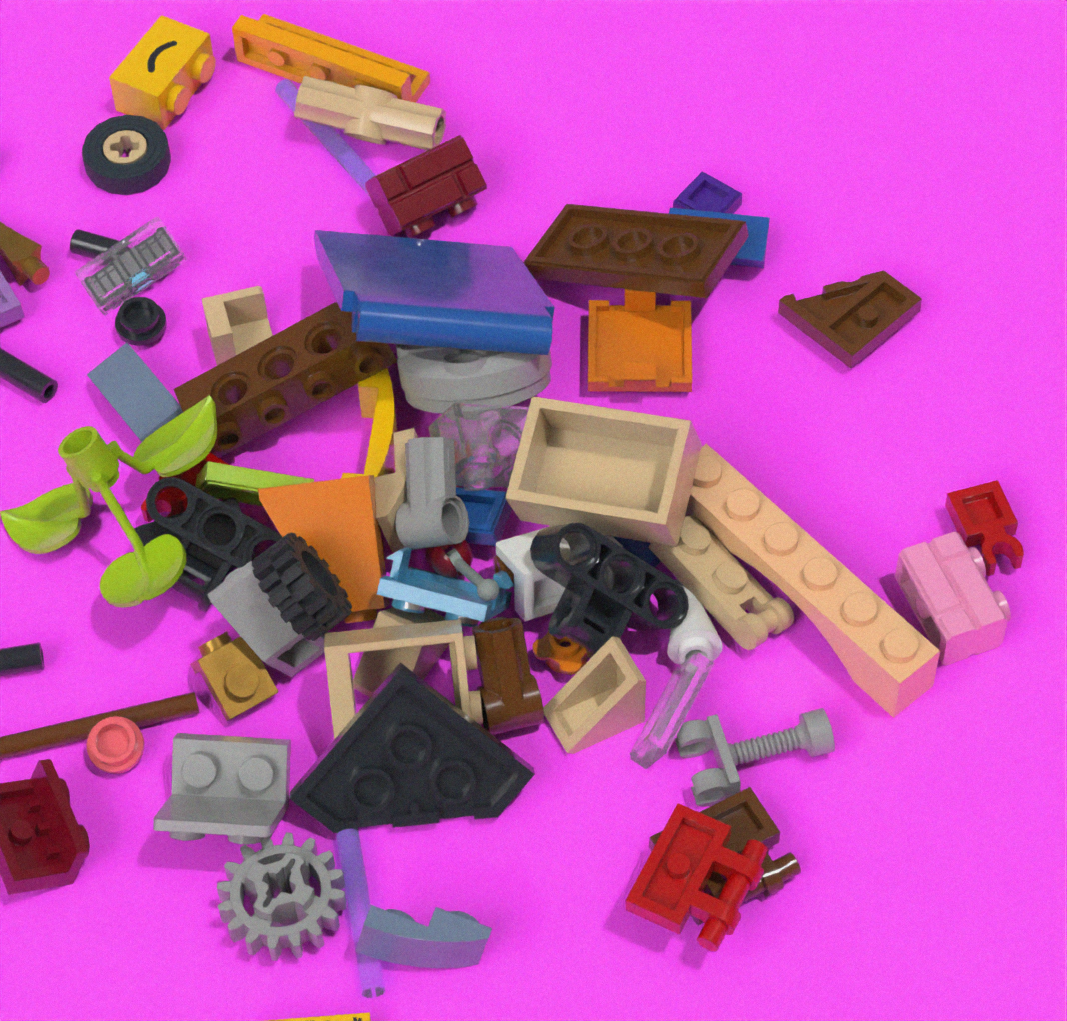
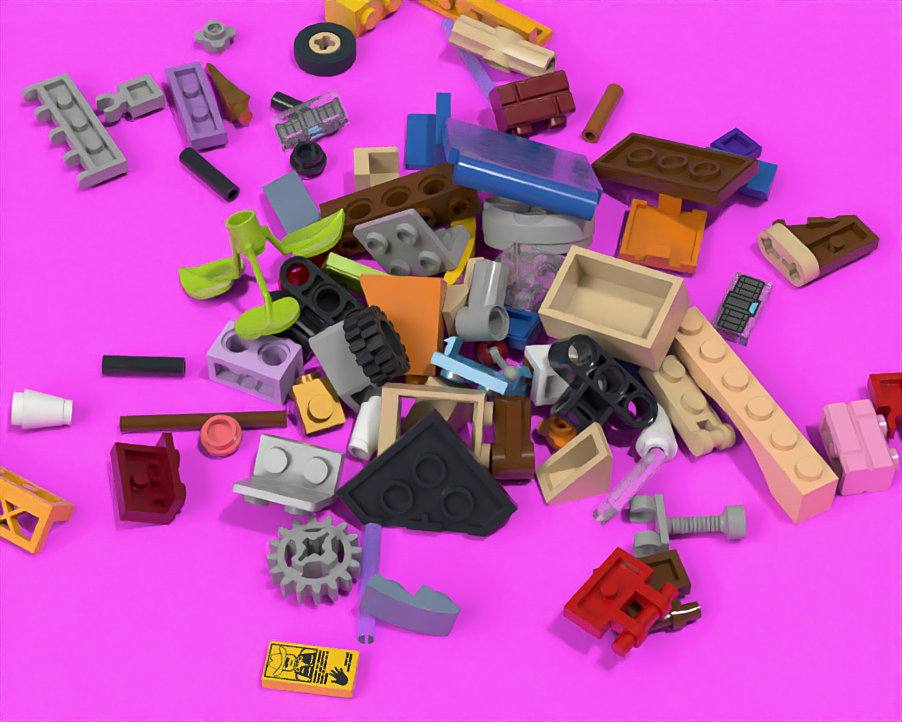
camera: 10 degrees right, 5 degrees down
(135, 642) = (256, 366): none -> lavender brick
(292, 261) = (424, 135): none -> blue panel
(310, 697) = (366, 430): none -> white cone
(311, 432) = (408, 245): none -> light grey bracket
(521, 182) = (602, 113): none -> dark orange piece
(762, 429) = (741, 308): none -> tile
(808, 342) = (788, 254): none -> beam

